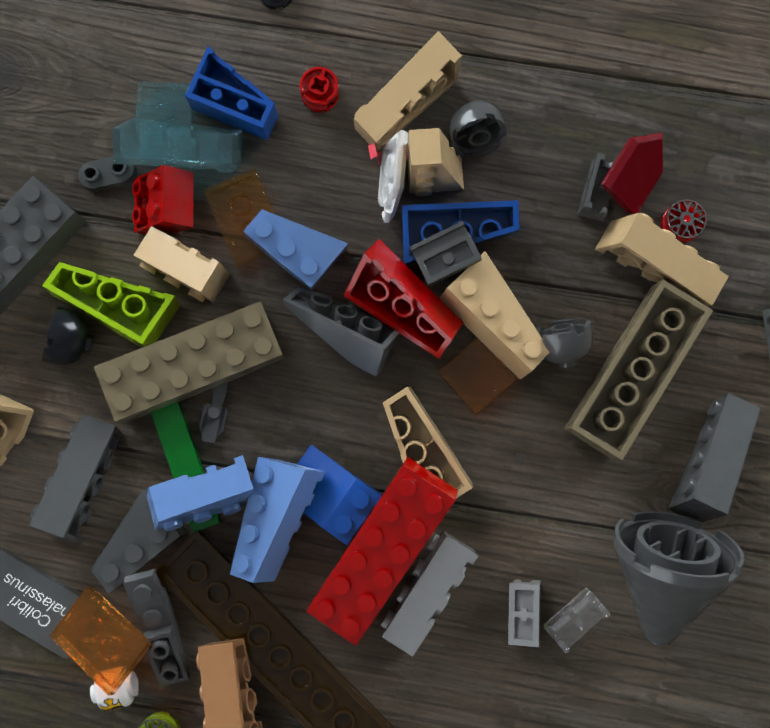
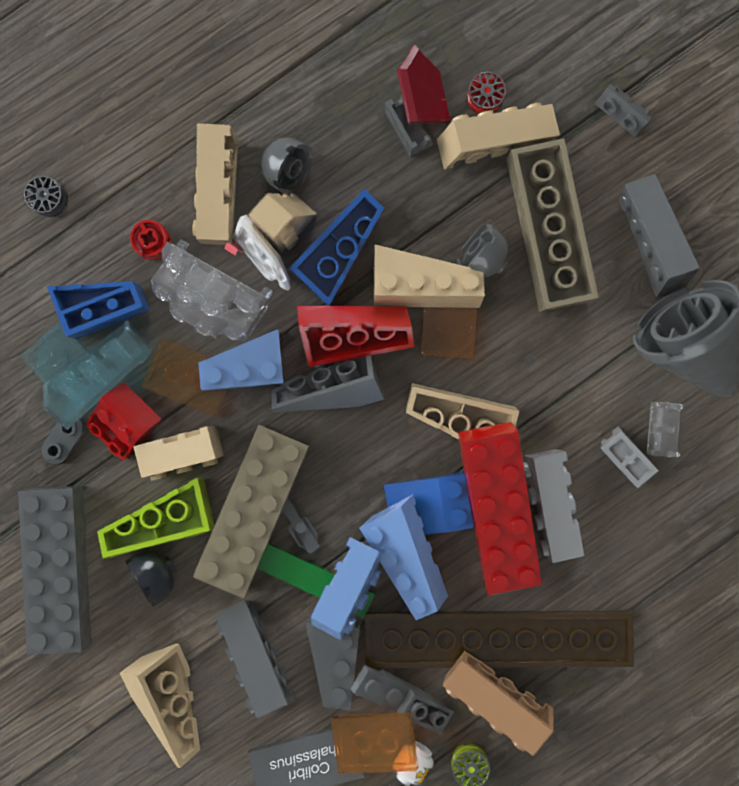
camera: 45 degrees left, 5 degrees up
(318, 165) = (205, 295): none -> clear piece
(445, 253) = (351, 272): dark grey plate -> none

